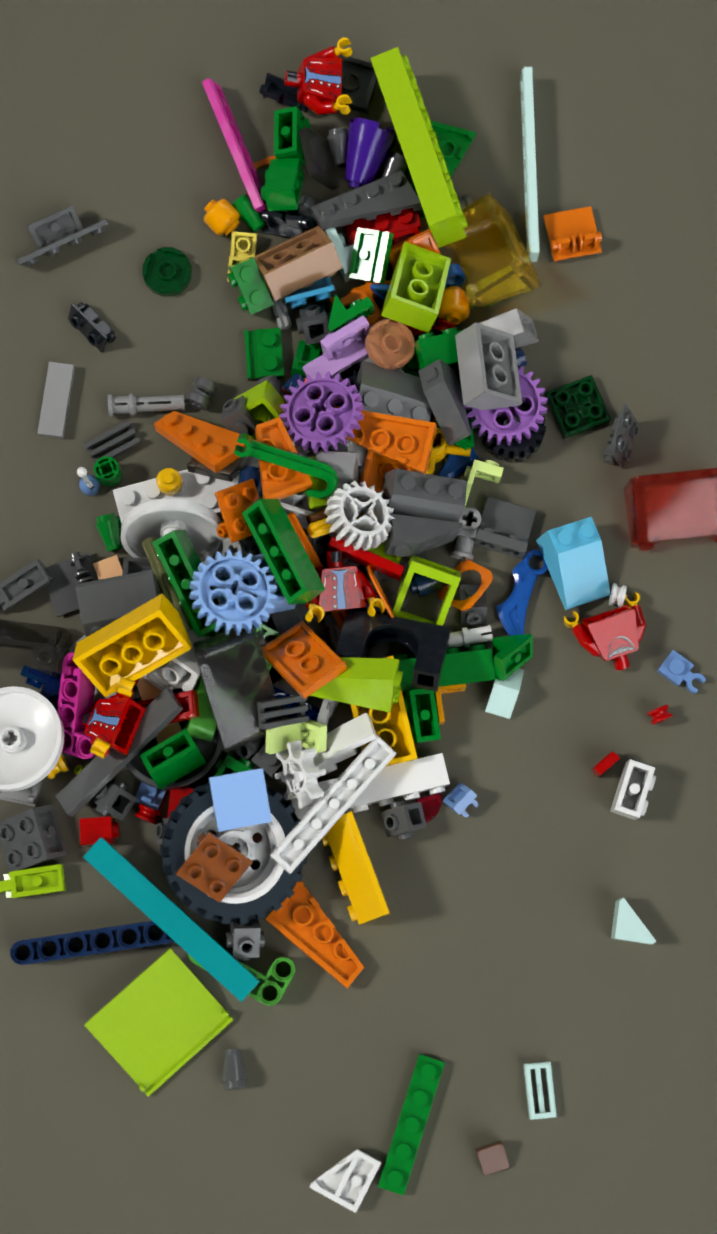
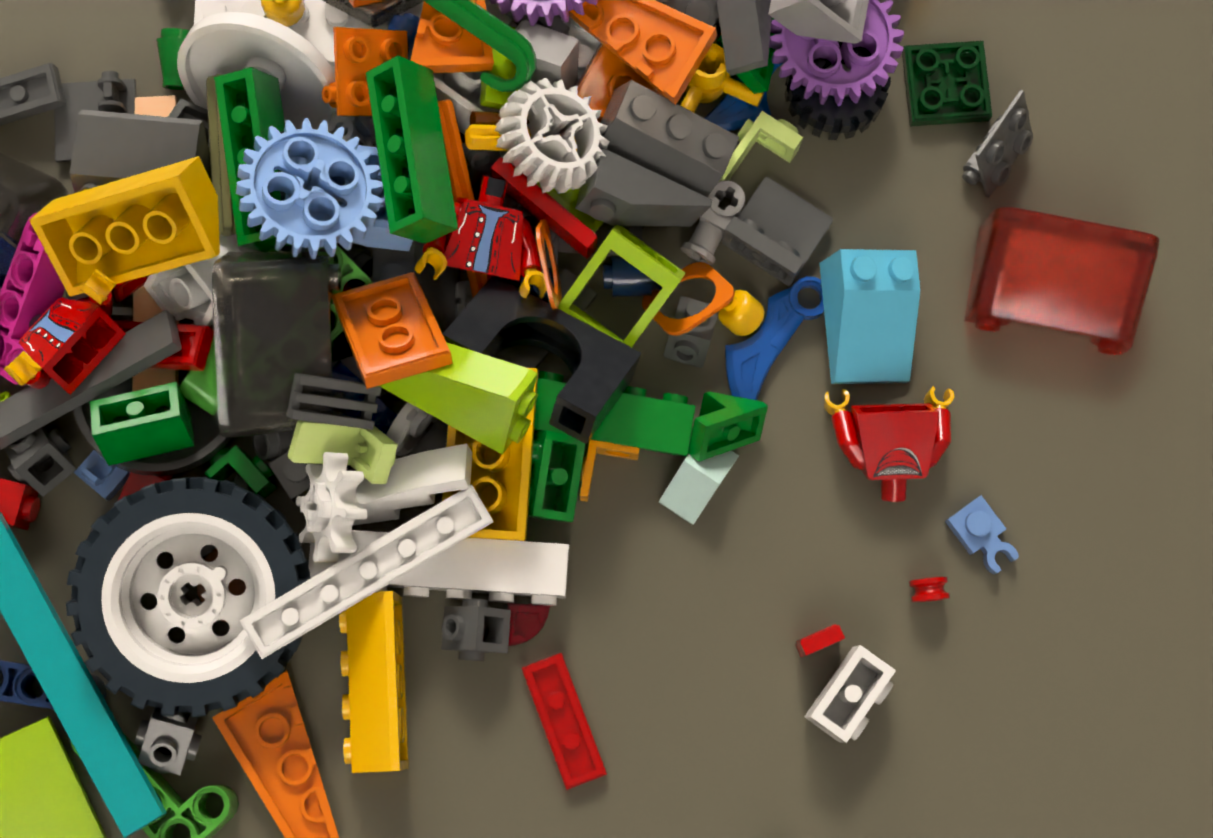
camera: 15 degrees right, 0 degrees up
(147, 814) = (87, 499): red bush -> none
(214, 867) = (142, 611): dark orange hinge -> none
(240, 799) = (218, 517): light blue tile -> none
(460, 799) = (576, 624): medium blue tile -> none
(469, 636) = (669, 379): white pin -> none
(470, 857) = (564, 721): none -> red tile
(501, 584) = (742, 314): none -> yellow piece
(617, 595) = (919, 385): white bush -> none

